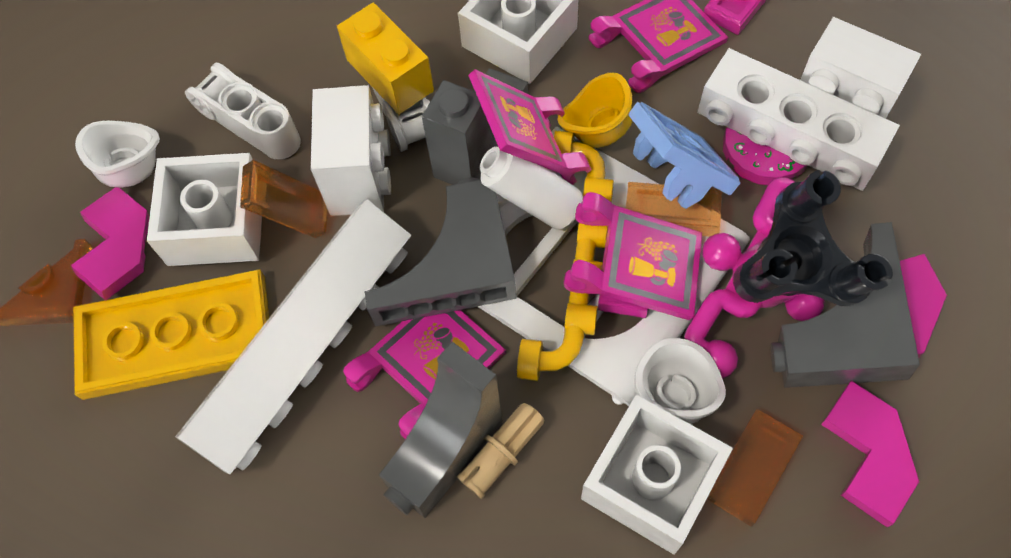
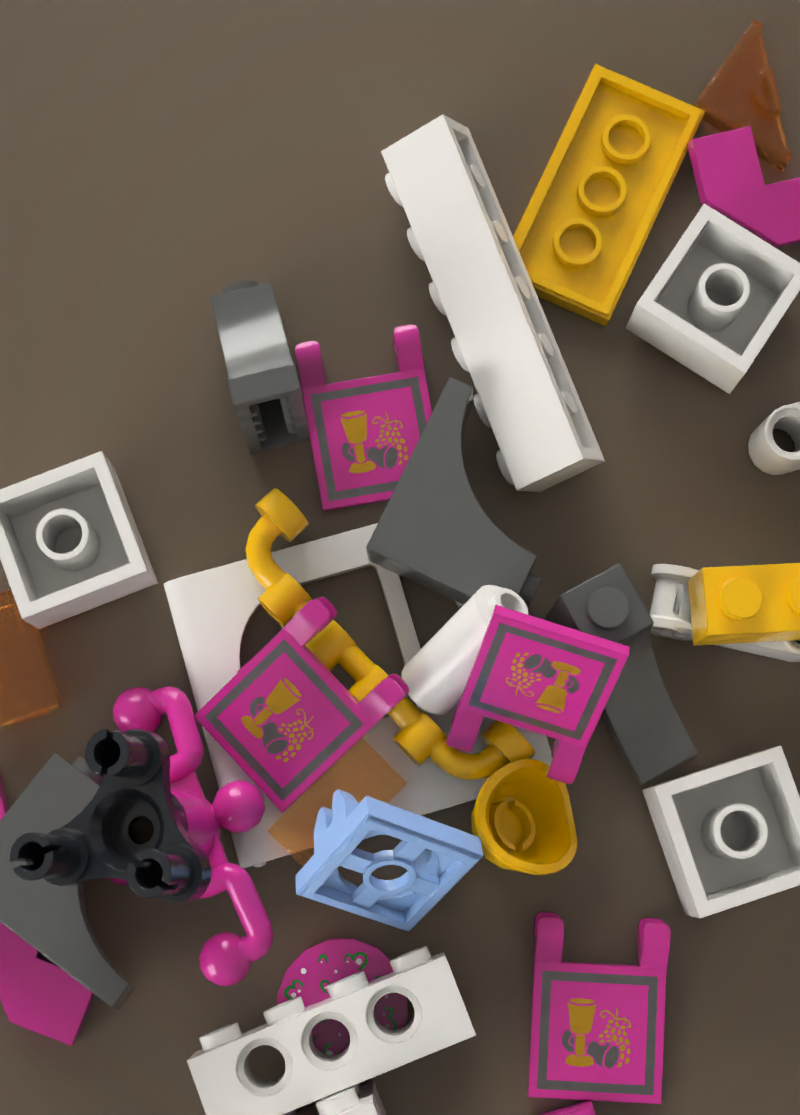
camera: 120 degrees right, 15 degrees up
(283, 199) = (666, 384): clear orange tile -> none
(349, 148) = (677, 492): white brick -> none
(501, 449) = (217, 425): tan axle -> none
(680, 379) = (134, 638): white helmet -> none

